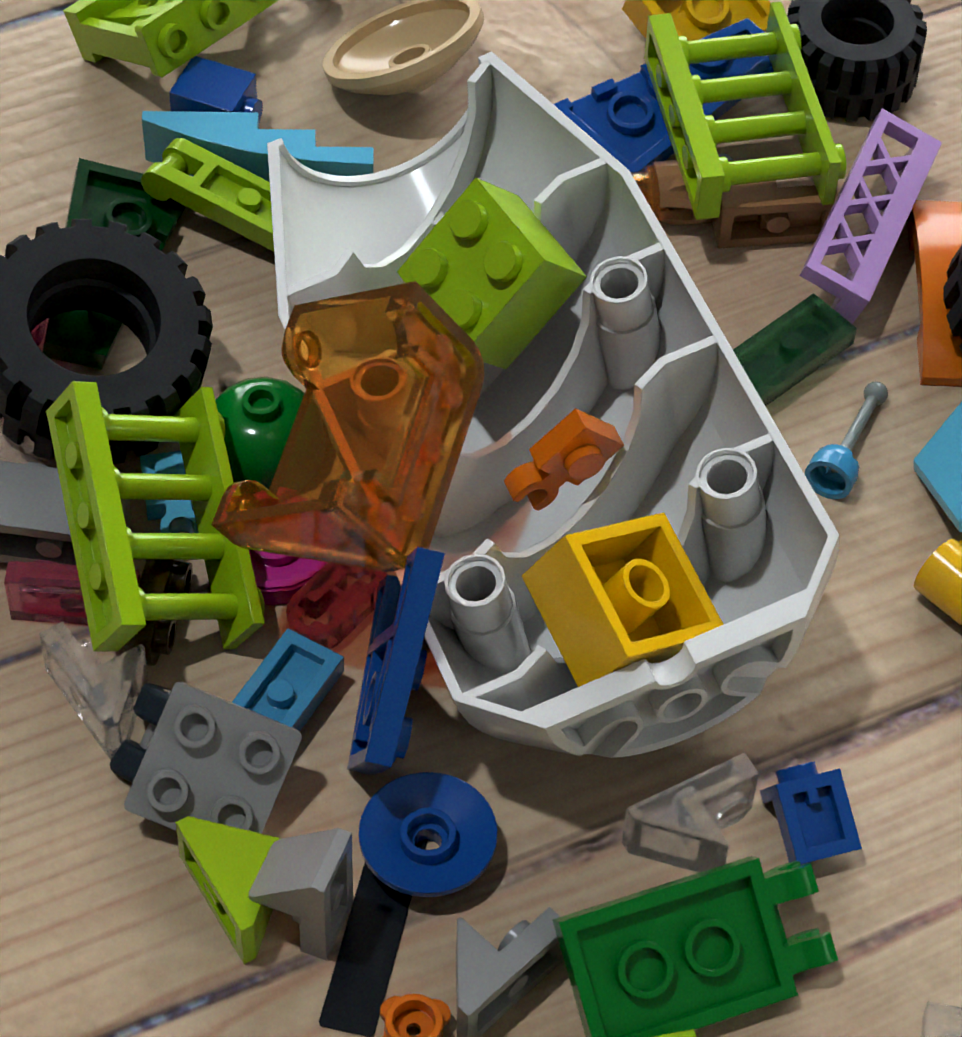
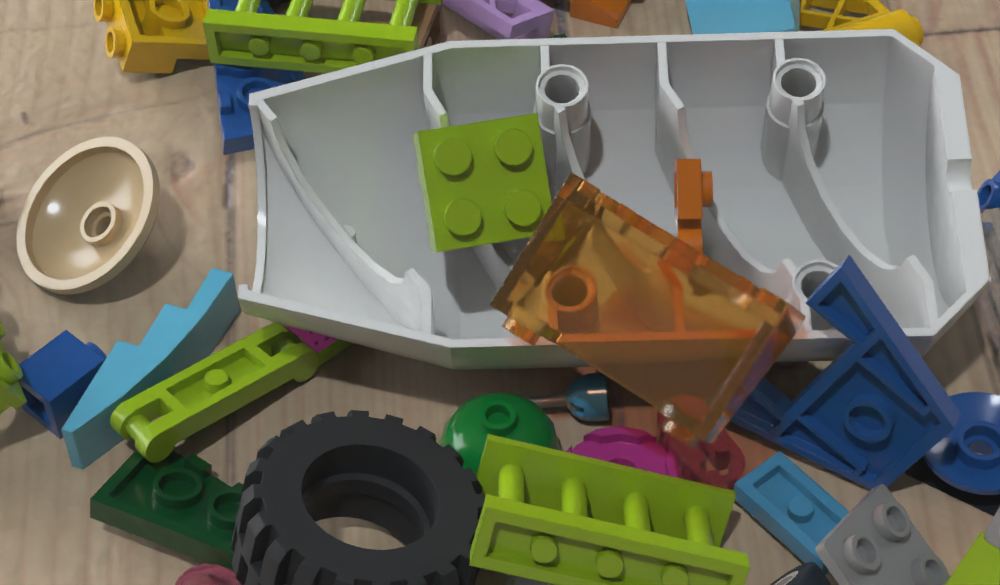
camera: 65 degrees left, 5 degrees down
(620, 596) = (874, 200): yellow brick -> none

